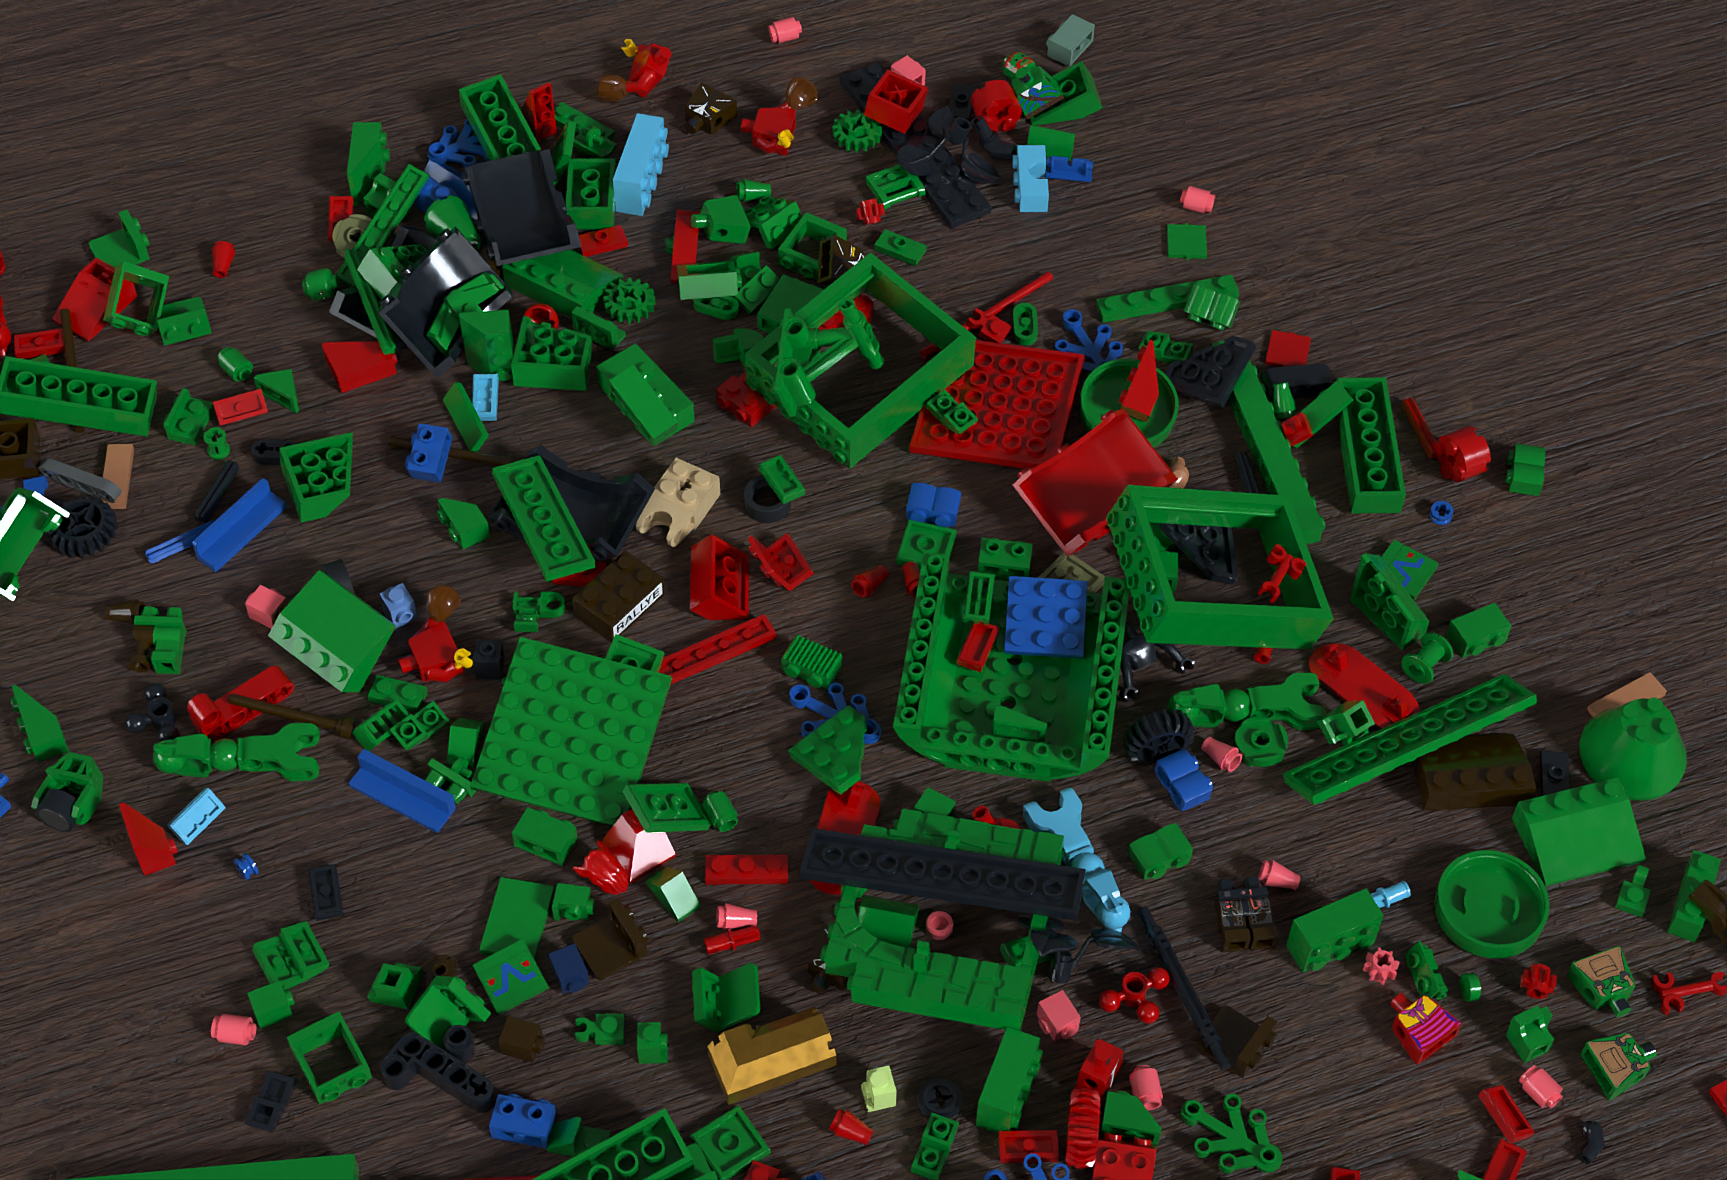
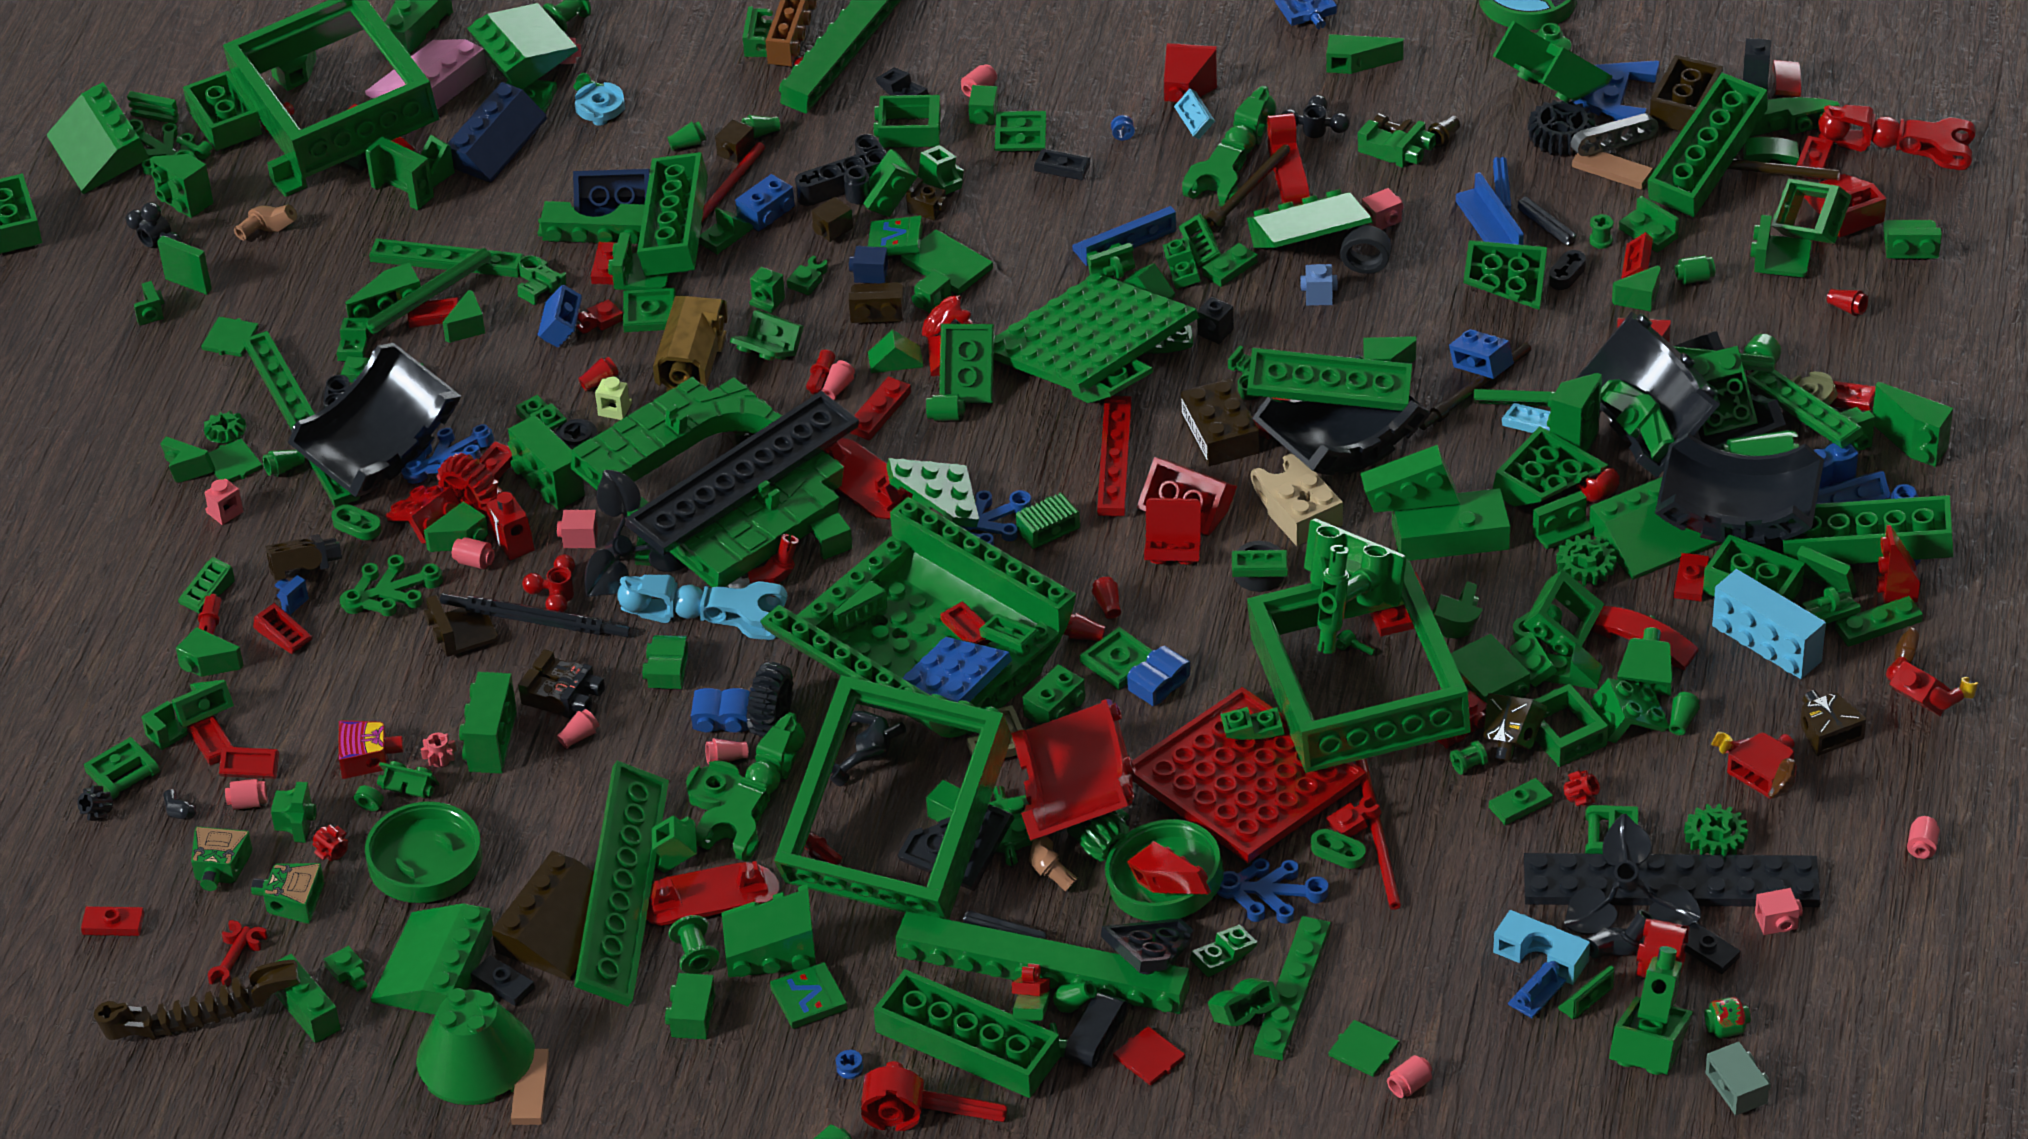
camera: 125 degrees right, 10 degrees down
(74, 775) = (1269, 48): green piece -> none
(432, 646) = (1254, 292): red torso -> none
(545, 836) = (1005, 292): green brick -> none
(896, 101) = (1718, 854): red brick -> none
(1285, 564) = (854, 842): red bar -> none
(1391, 894) = (497, 790): medium azure axle -> none

